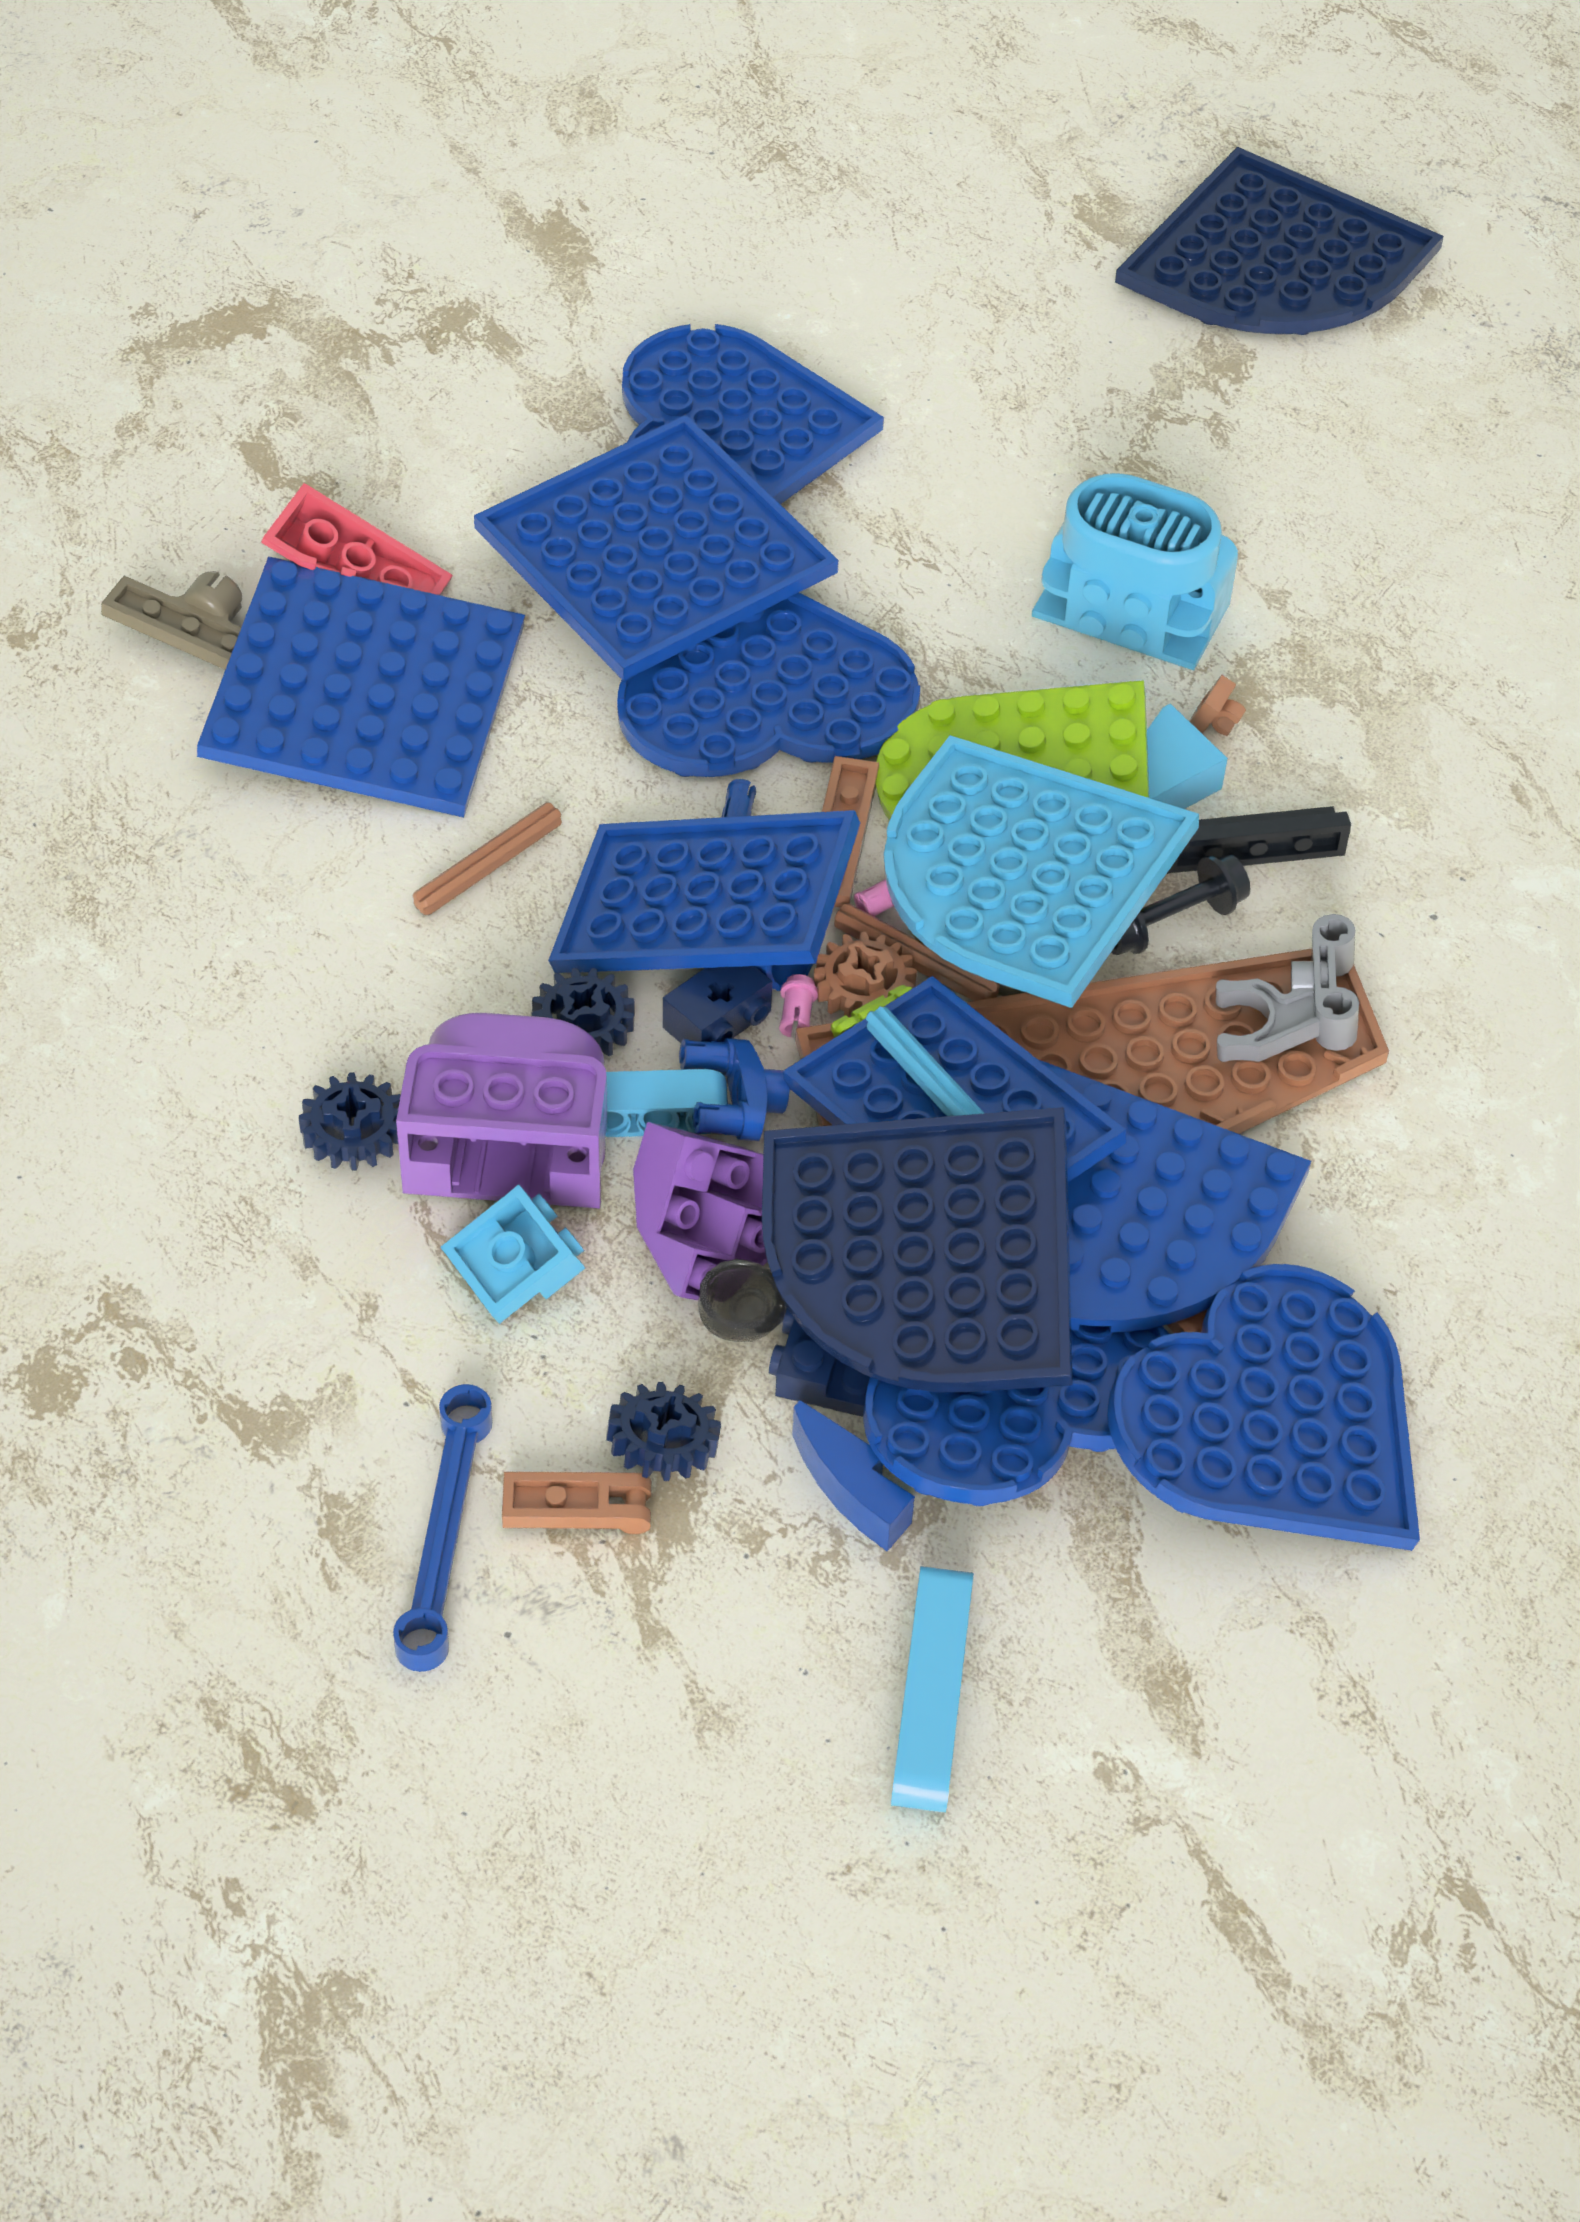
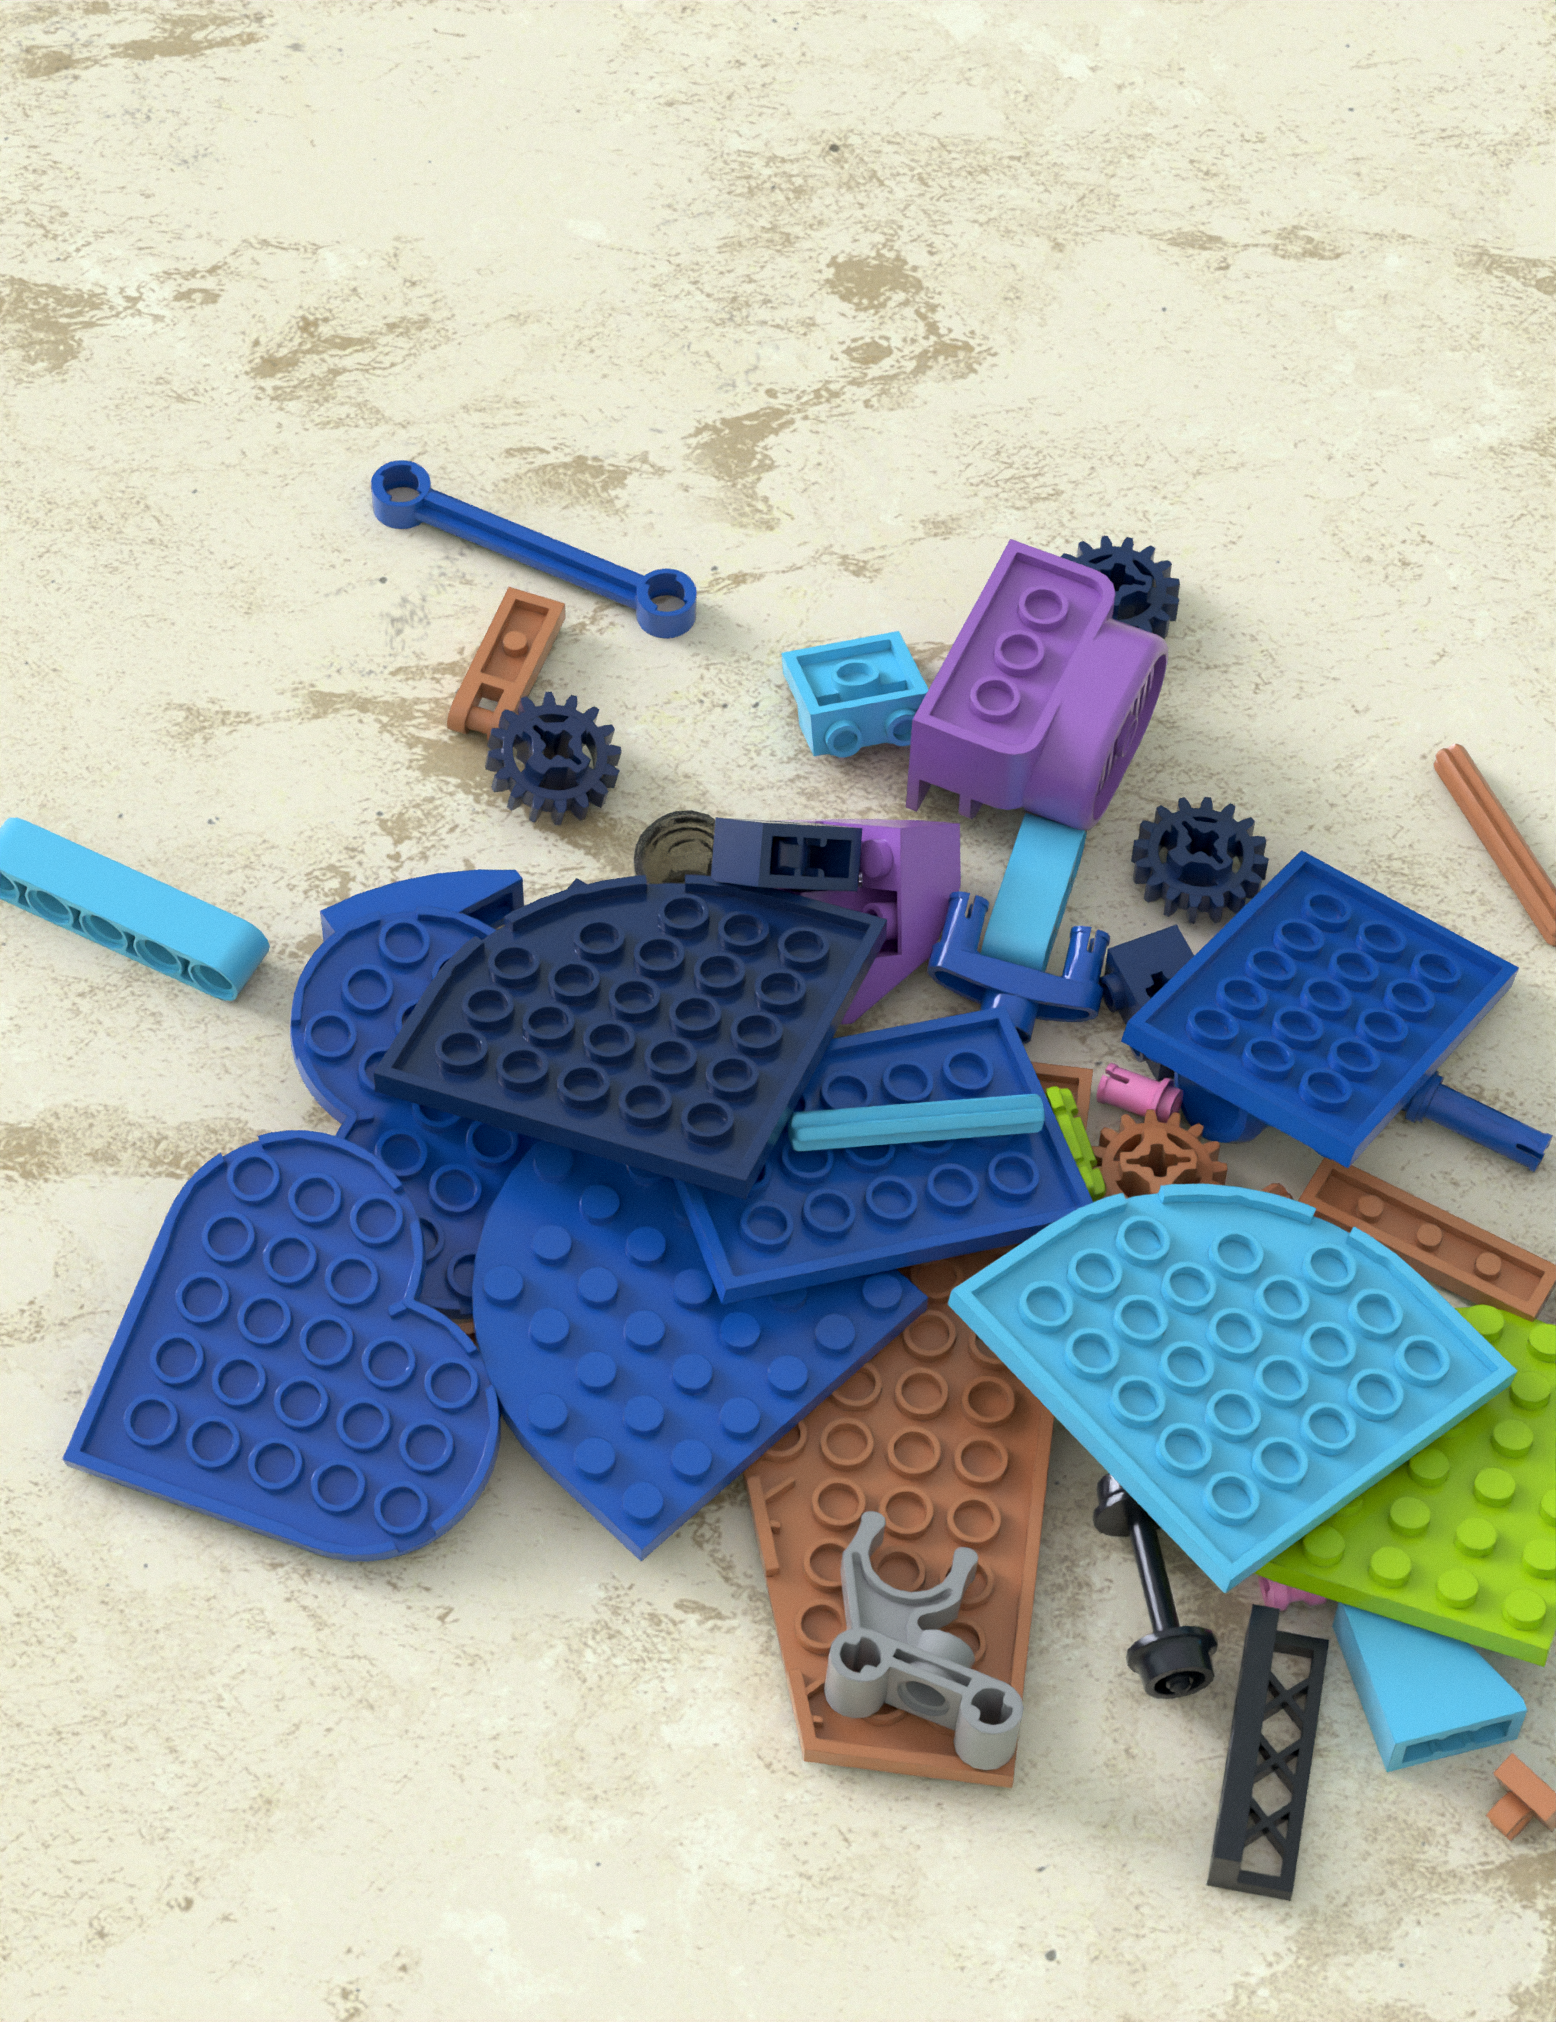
camera: 110 degrees right, 5 degrees up
(728, 1214) = (786, 854): none -> dark blue brick

